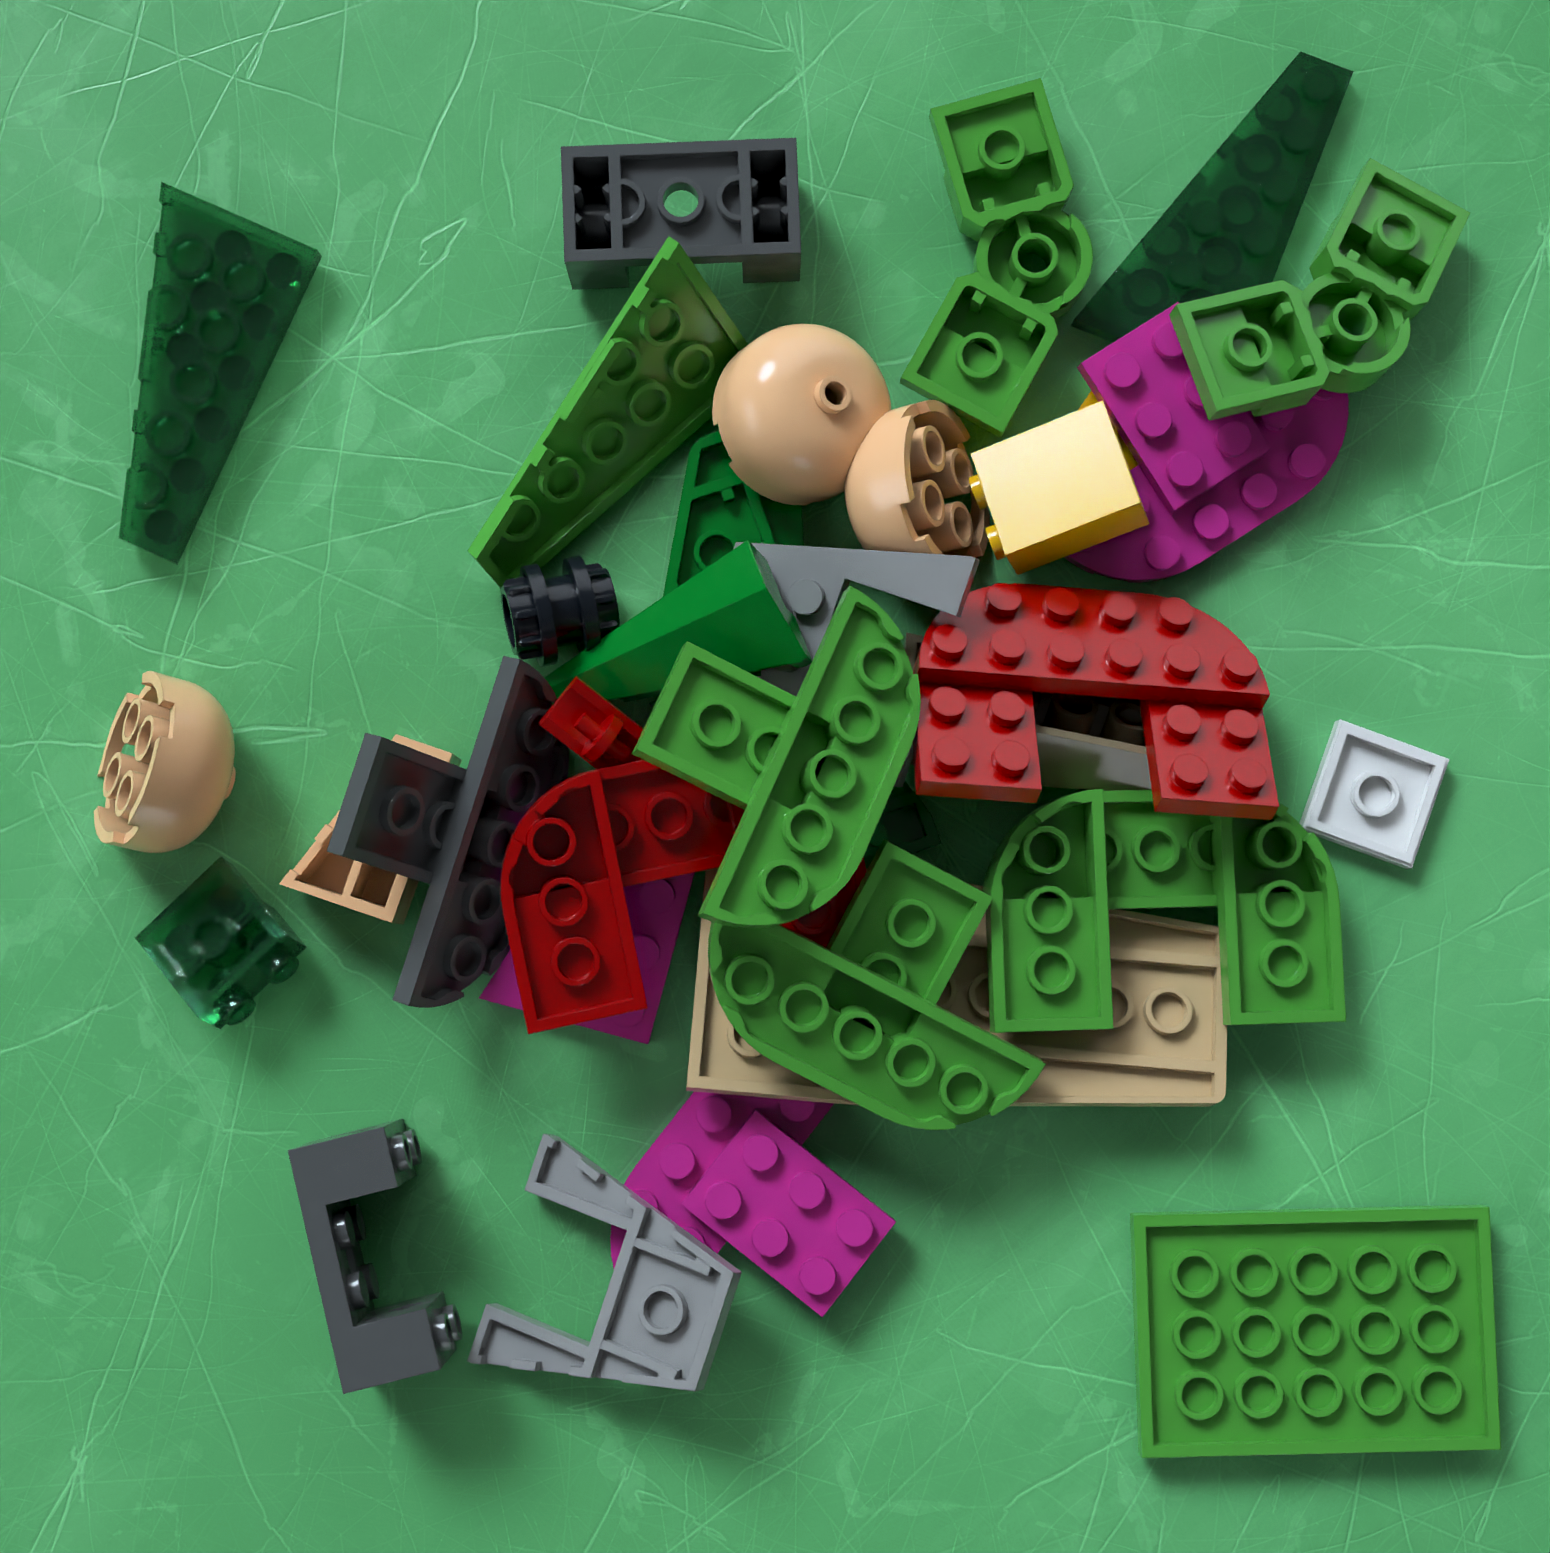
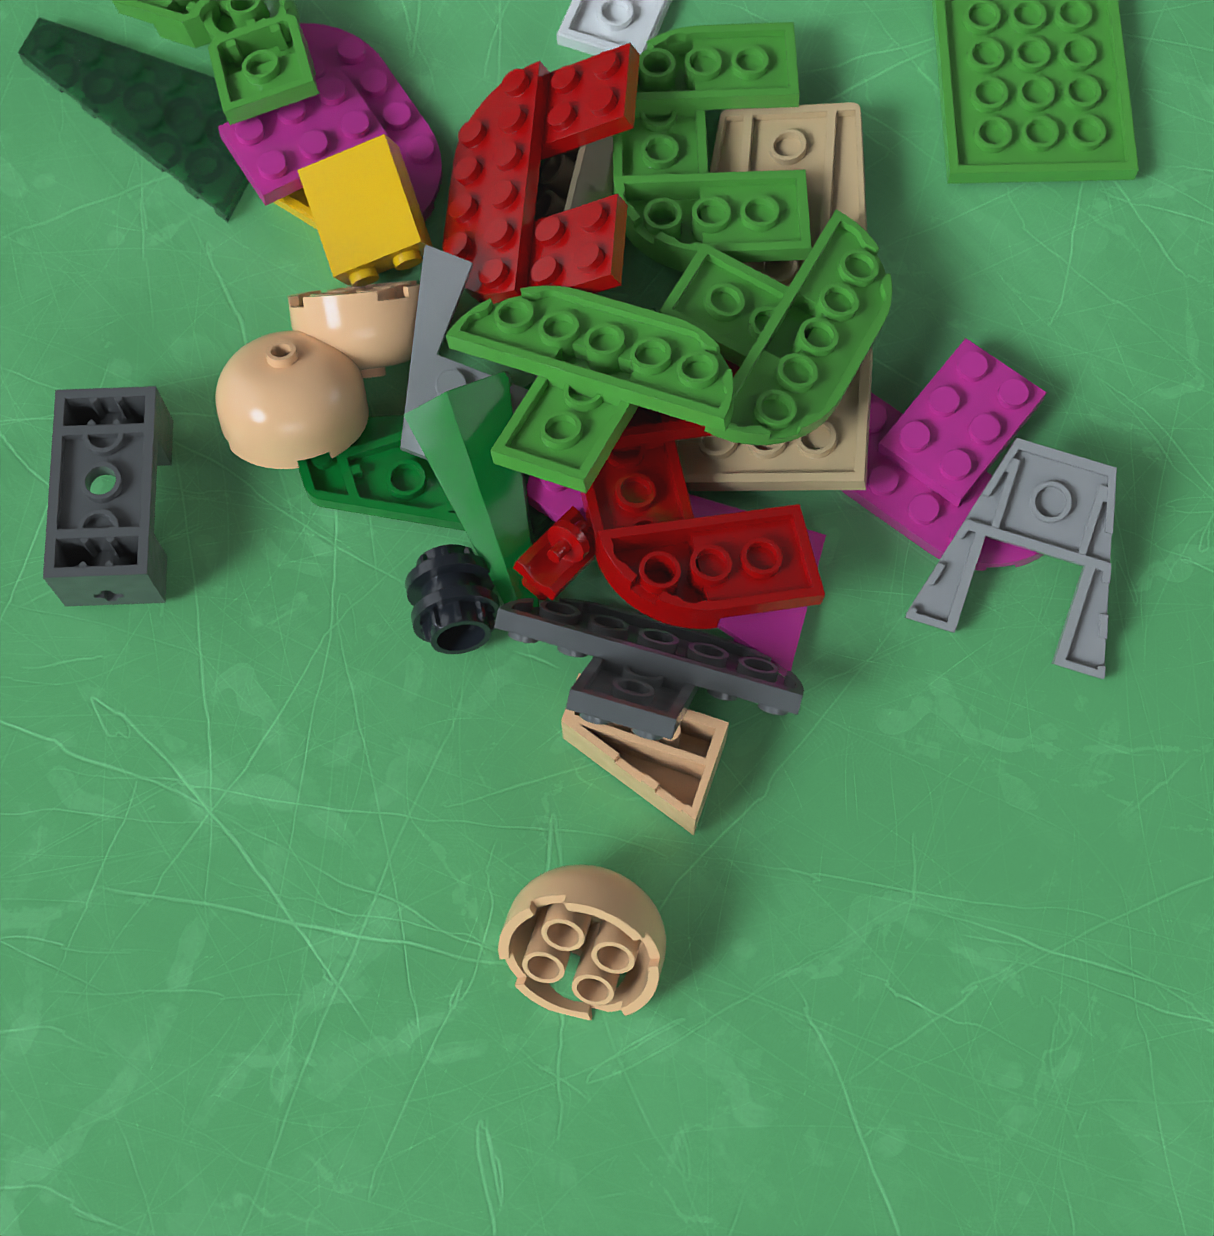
camera: 85 degrees left, 15 degrees down
(208, 341) = (182, 913): clear green wing -> none
(221, 945) = (747, 890): clear green plate -> none
(367, 1342) = (1090, 740): dark grey plate -> none
(621, 418) = (277, 538): bright green wing -> none
(1010, 196) = (117, 255): bright green plate -> none

